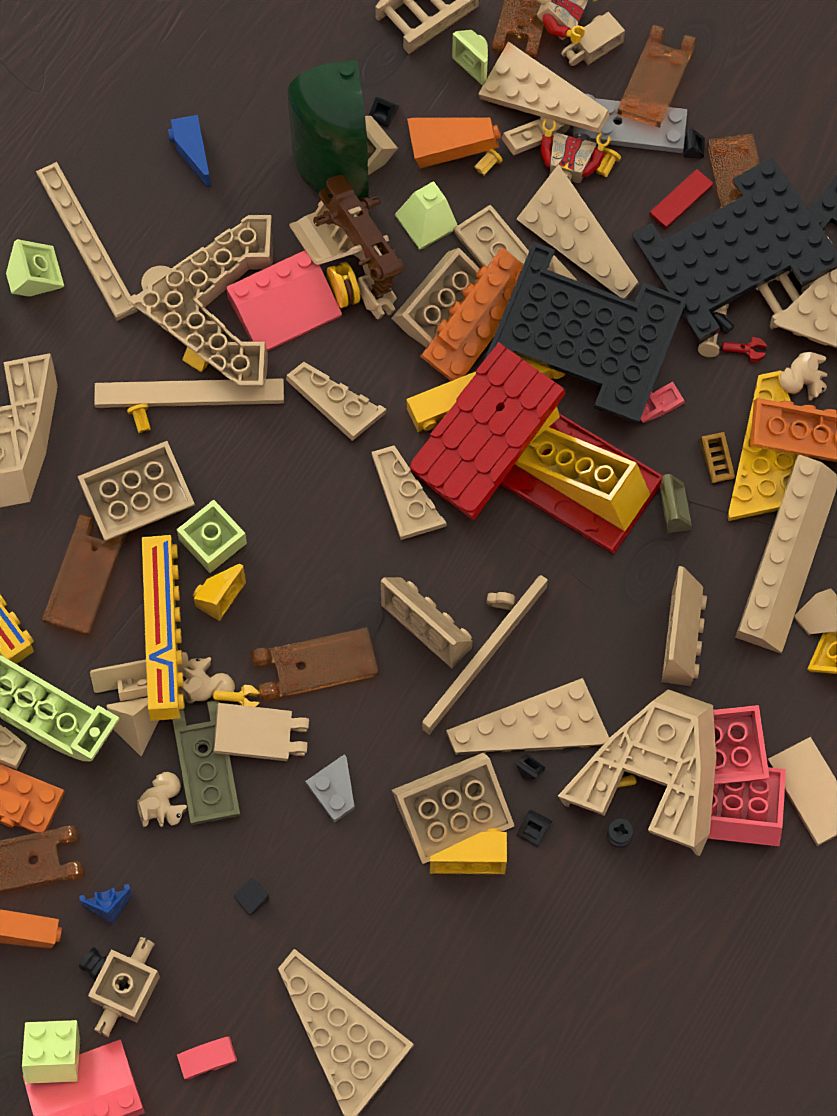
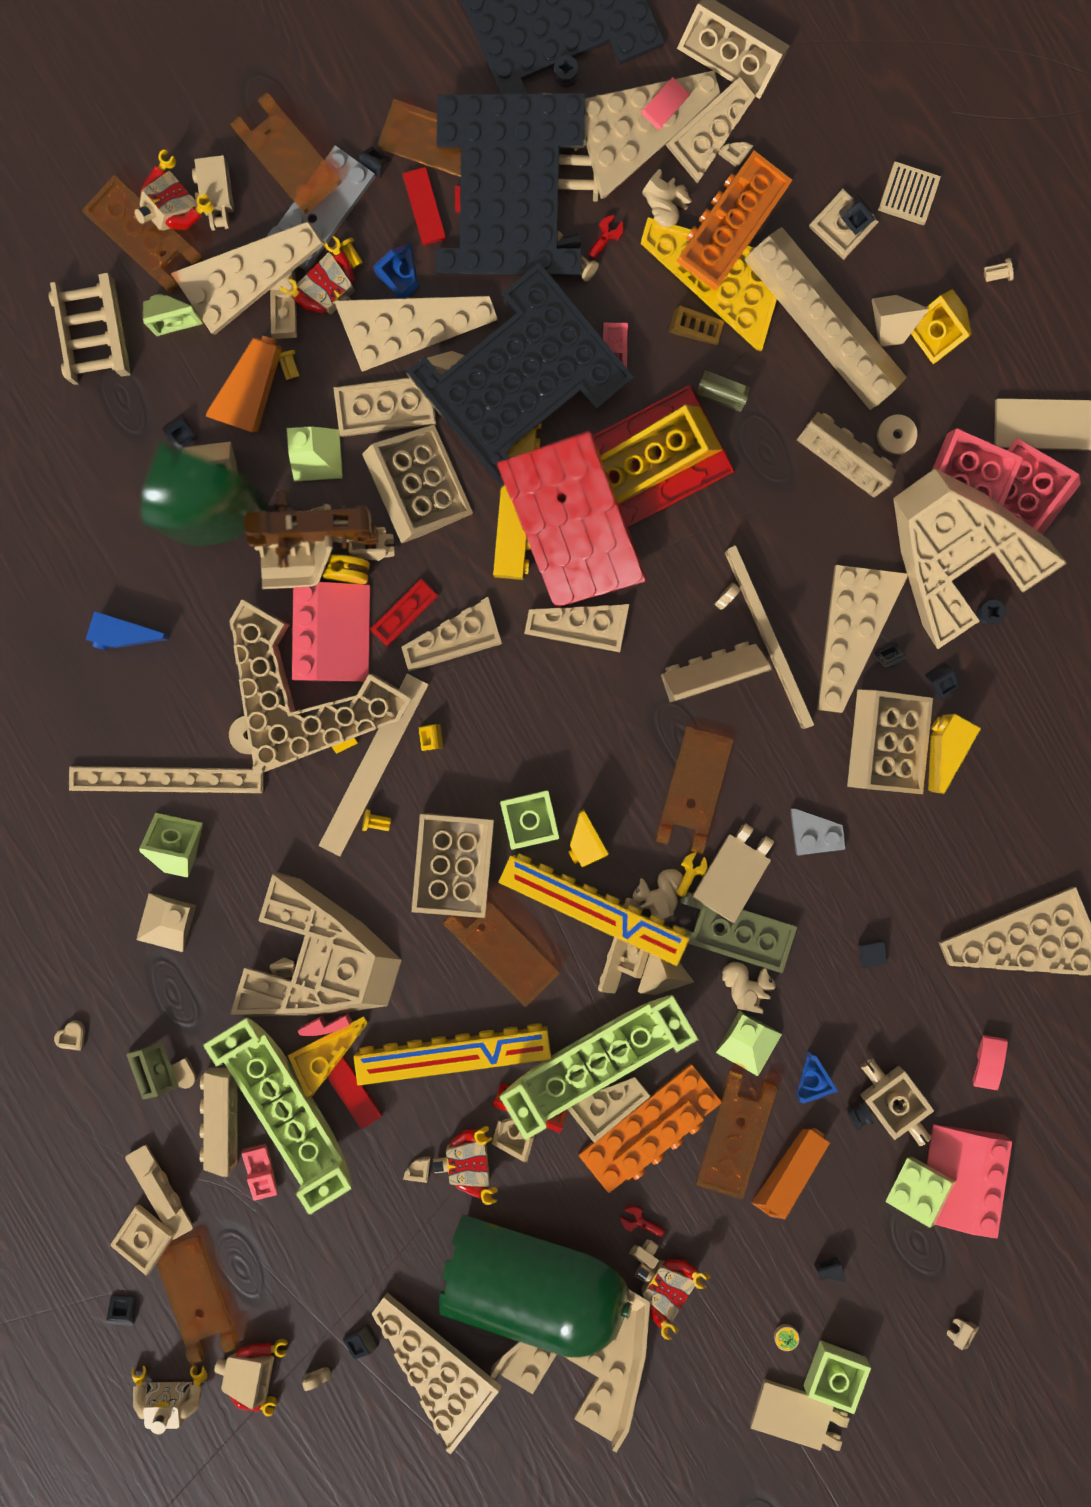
camera: 60 degrees left, 20 degrees up
(111, 829) = (748, 1043): none -> yellowish green slope
(239, 426) = (431, 737): none -> yellow slope
(334, 352) = (404, 612): none -> red tile
(474, 318) = (444, 465): orange plate -> none
(616, 204) = (398, 271): none -> blue slope
(730, 660) = (904, 426): none -> tan piece

